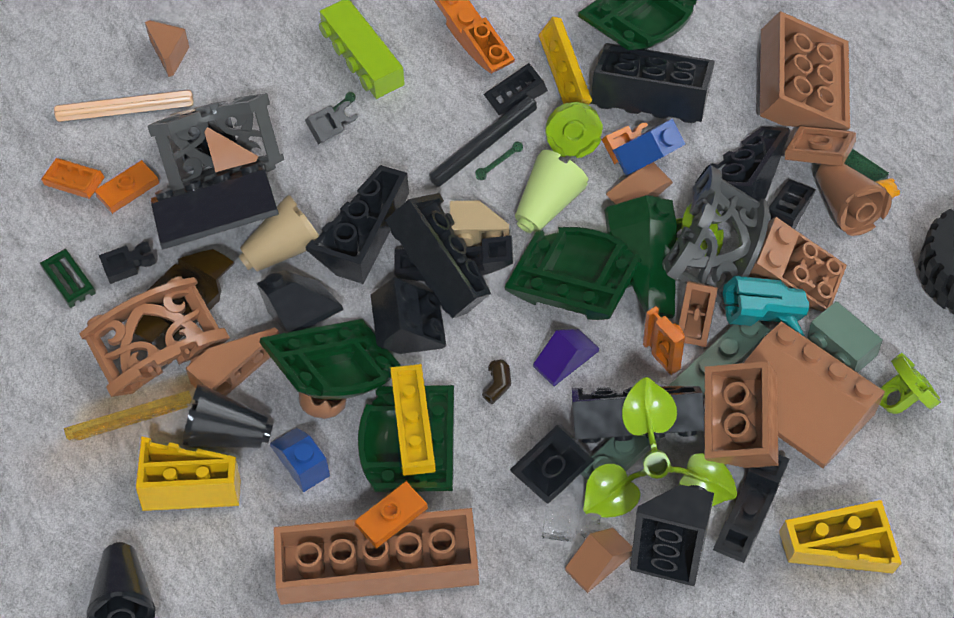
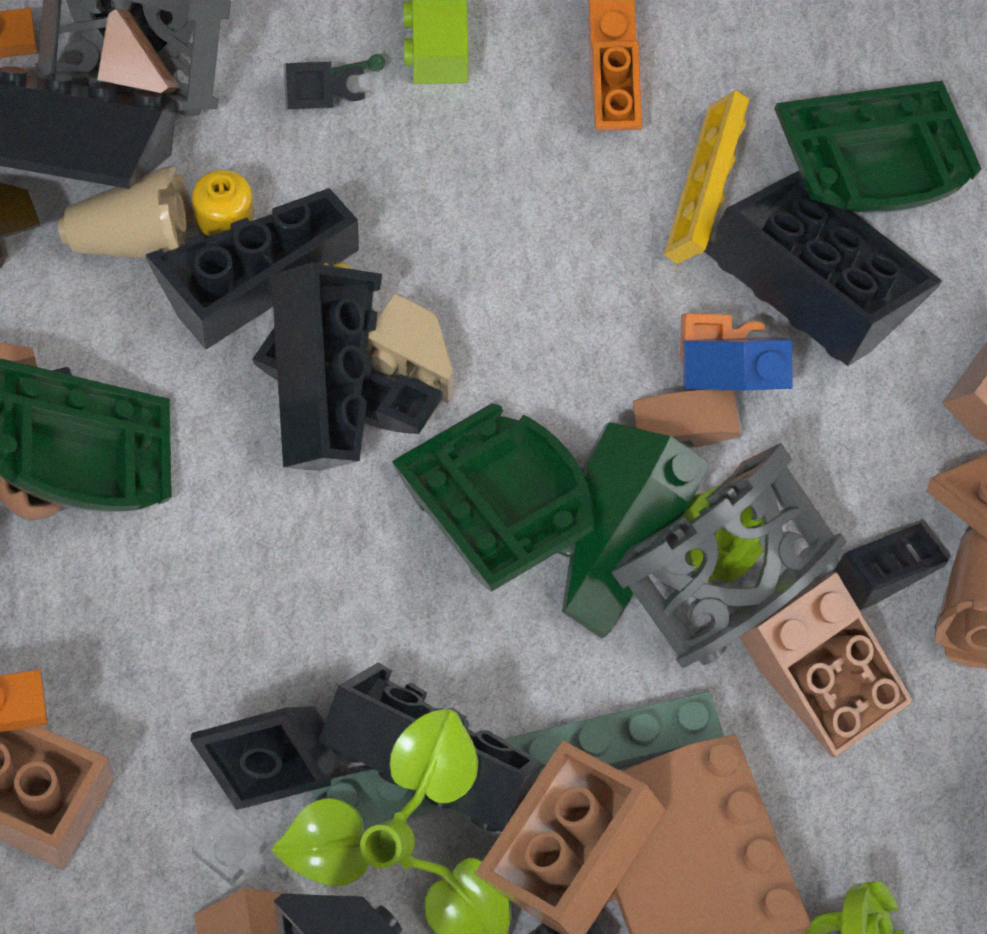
camera: 25 degrees right, 5 degrees up
(296, 300) = (92, 325): black slope -> none
(322, 204) = (221, 200): none -> yellow head
(381, 449) = (106, 610): dark green slope -> none
(407, 318) = (224, 434): black slope -> none
(412, 420) = (120, 585): yellow plate -> none
(481, 173) = (481, 273): clear green hinge -> none
(482, 141) = (515, 226): black axle -> none
(501, 380) = (294, 594): dark brown arm -> none
(519, 78) = (631, 188): black slope -> none
(548, 190) = (544, 354): yellowish green cone -> none
(564, 354) = (409, 606): dark purple slope -> none
(574, 129) = (645, 280): lime tile -> none
(664, 339) = (552, 667): orange plate -> none
(697, 312) = (631, 654): nougat slope -> none
(754, 163) = (869, 478): black wedge -> none
(764, 301) = (738, 689): teal piece -> none
(844, 337) = (820, 811): sand green brick -> none

